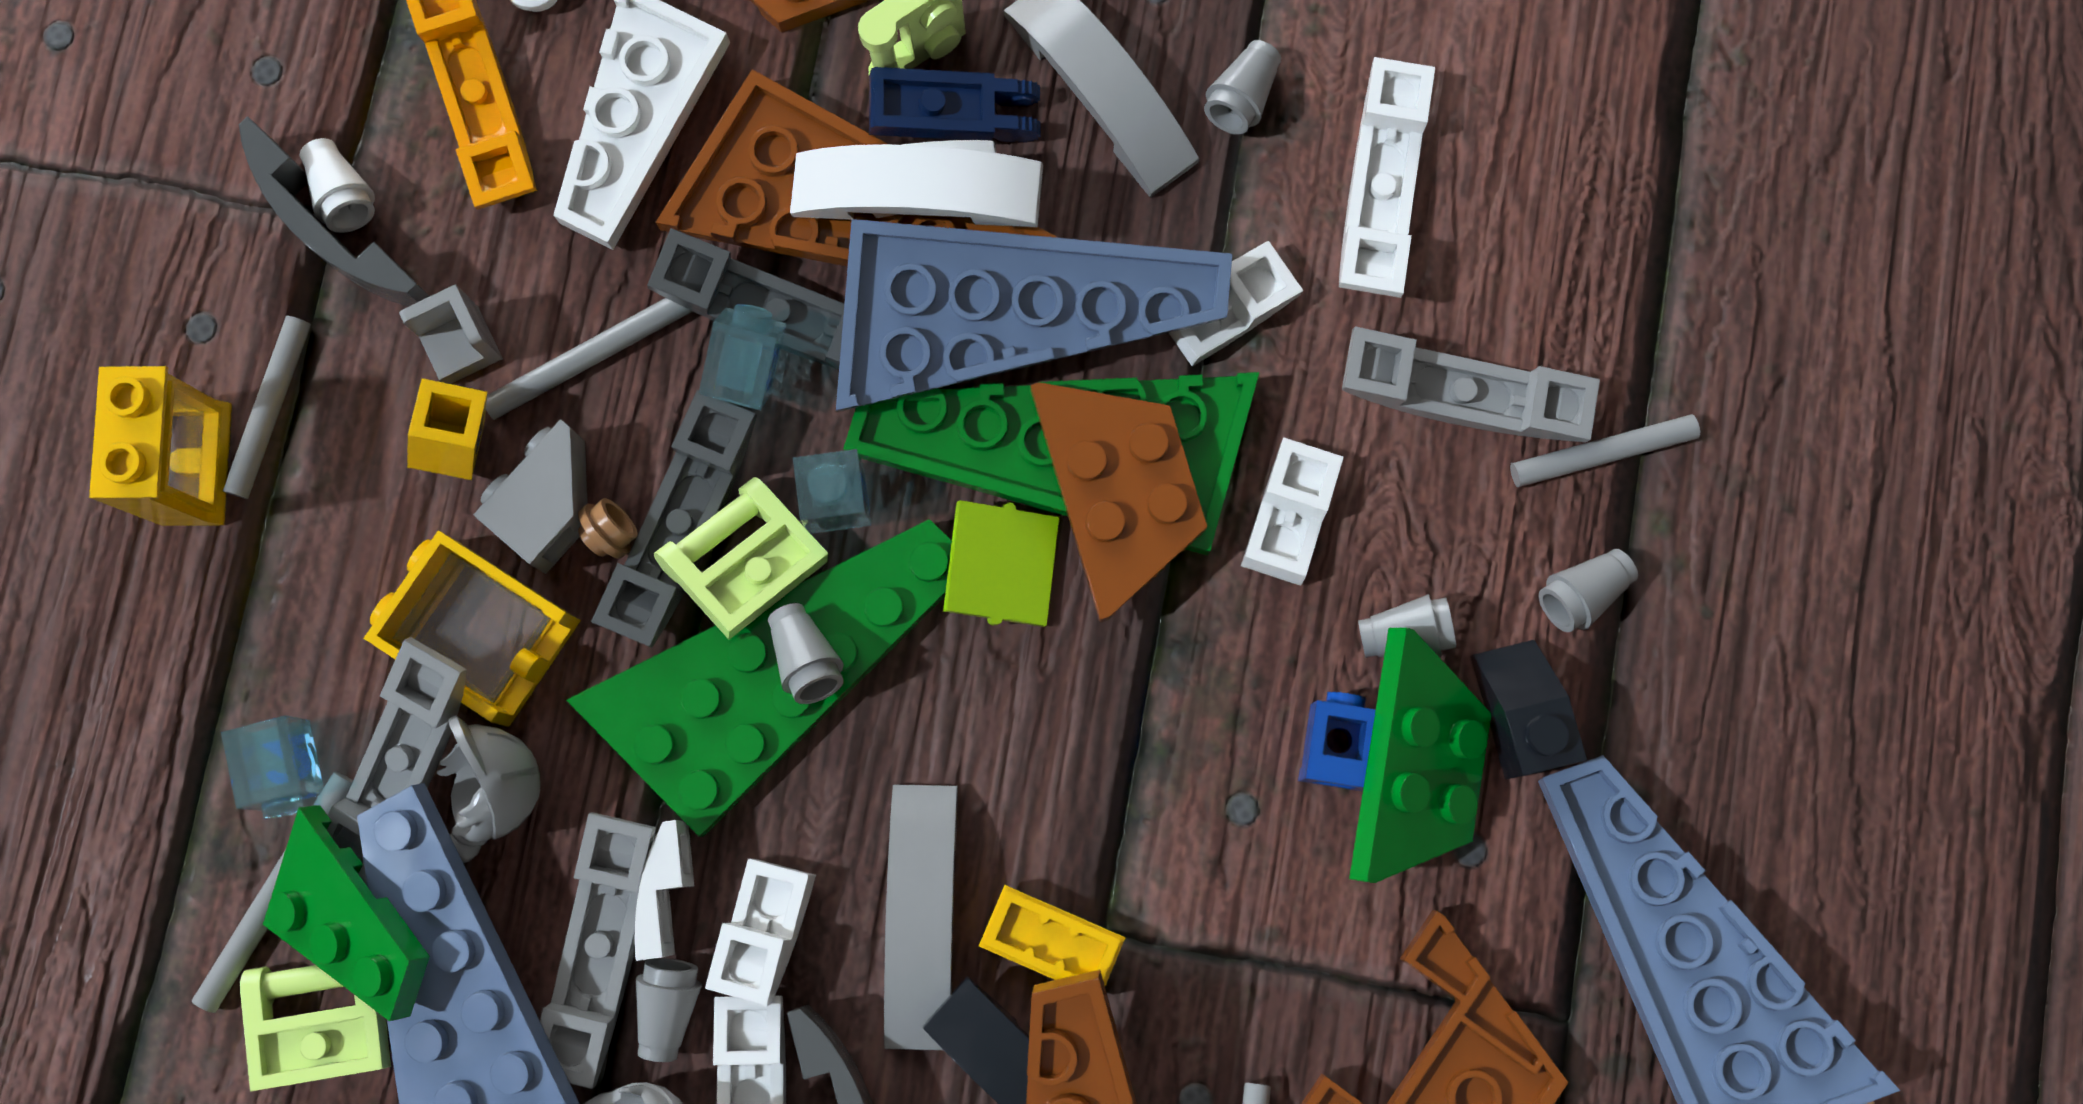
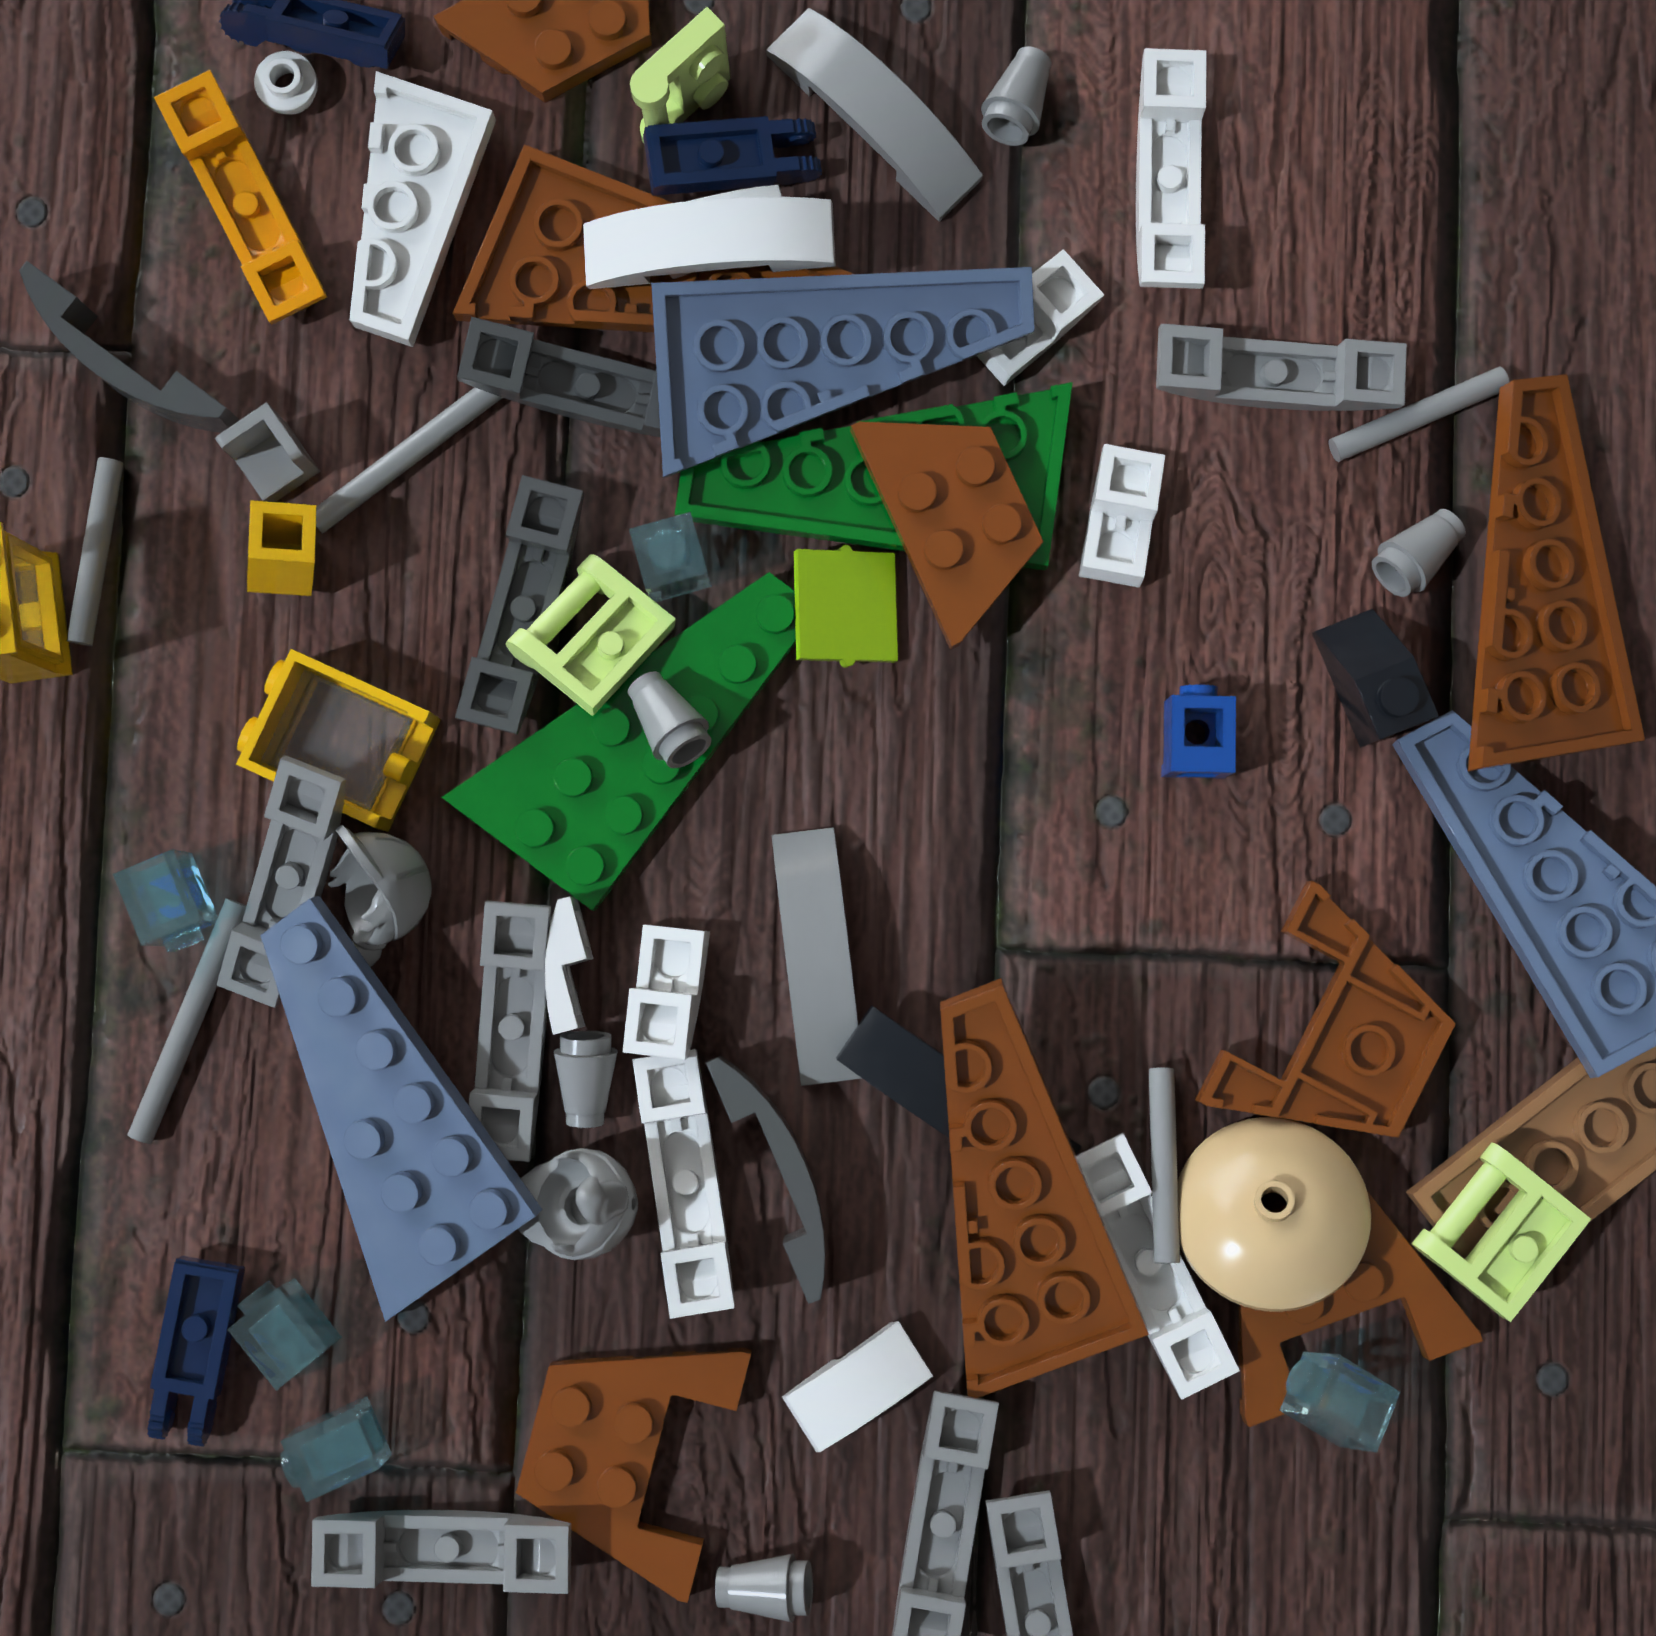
camera: 10 degrees left, 5 degrees up
(311, 1043) = (256, 1156): yellowish green plate -> none
(335, 188) = (127, 324): white cone -> none
(339, 924) = (260, 1039): green wing -> none
(541, 498) = (386, 606): light grey slope -> none
(606, 529) = (453, 625): medium nougat plate -> none
(743, 356) = (562, 435): clear light blue brick -> none
(1048, 938) = (942, 958): yellow plate -> none
(1420, 763) = (1279, 740): green wing -> none
(1426, 616) = (1251, 615): light grey cone -> none
(1712, 682) = (1550, 627): none -> dark orange wing

